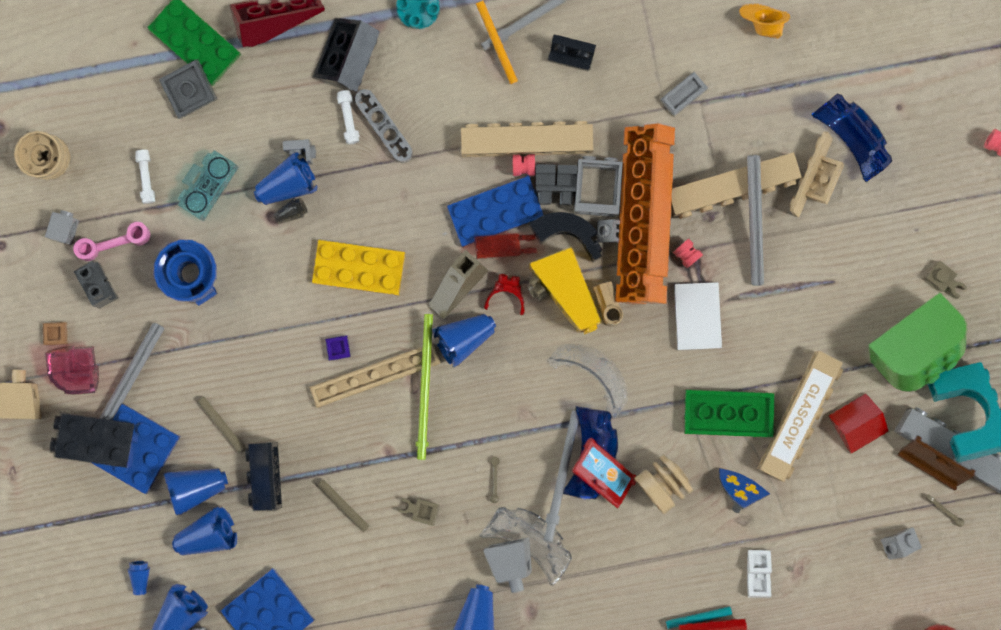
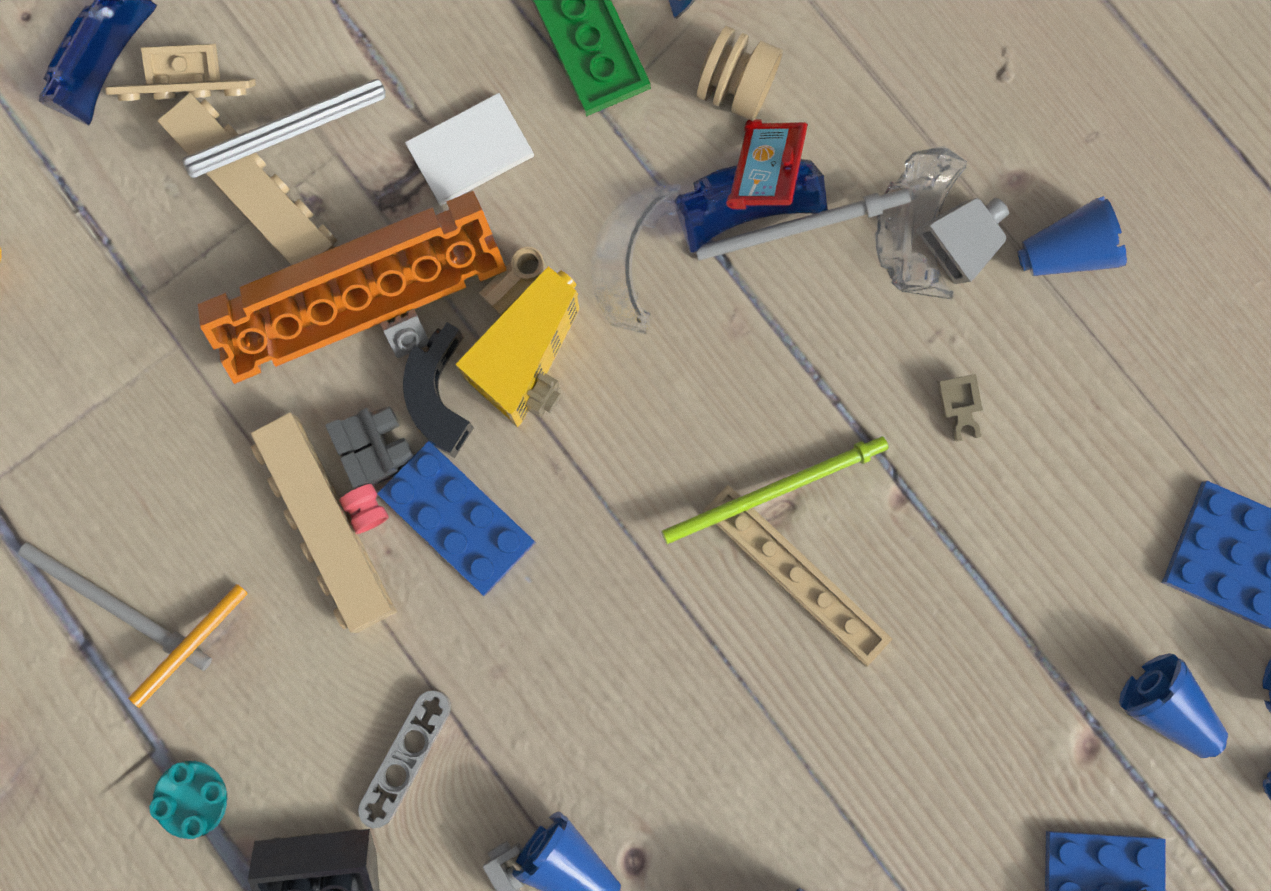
camera: 115 degrees left, 5 degrees down
(193, 487) = (1117, 766): blue cone -> none
(219, 422) = (995, 774): dark tan bar -> none
(264, 476) = (1041, 663): black slope -> none
(291, 211) = (610, 836): clear smoke cone -> none
(338, 348) = (784, 653): dark purple tile -> none
(339, 501) = (1014, 524): dark tan bar -> none
(351, 135) = (390, 843): white bar -> none
(358, 267) = (646, 685): yellow plate -> none
(457, 283) = (596, 518): dark tan slope -> none
(463, 337) = (673, 467): blue cone -> none
(494, 498) = (830, 333): dark tan hinge -> none
(502, 246) = (505, 480): clear red hinge -> none
(510, 285) = (561, 445): red helmet -> none
(571, 52) = (152, 521): black bracket -> none
(598, 209) = (363, 340): light grey window -> none
(684, 94) = (143, 326): light grey tile -> none
(687, 253) = (383, 203): coral wheel -> none

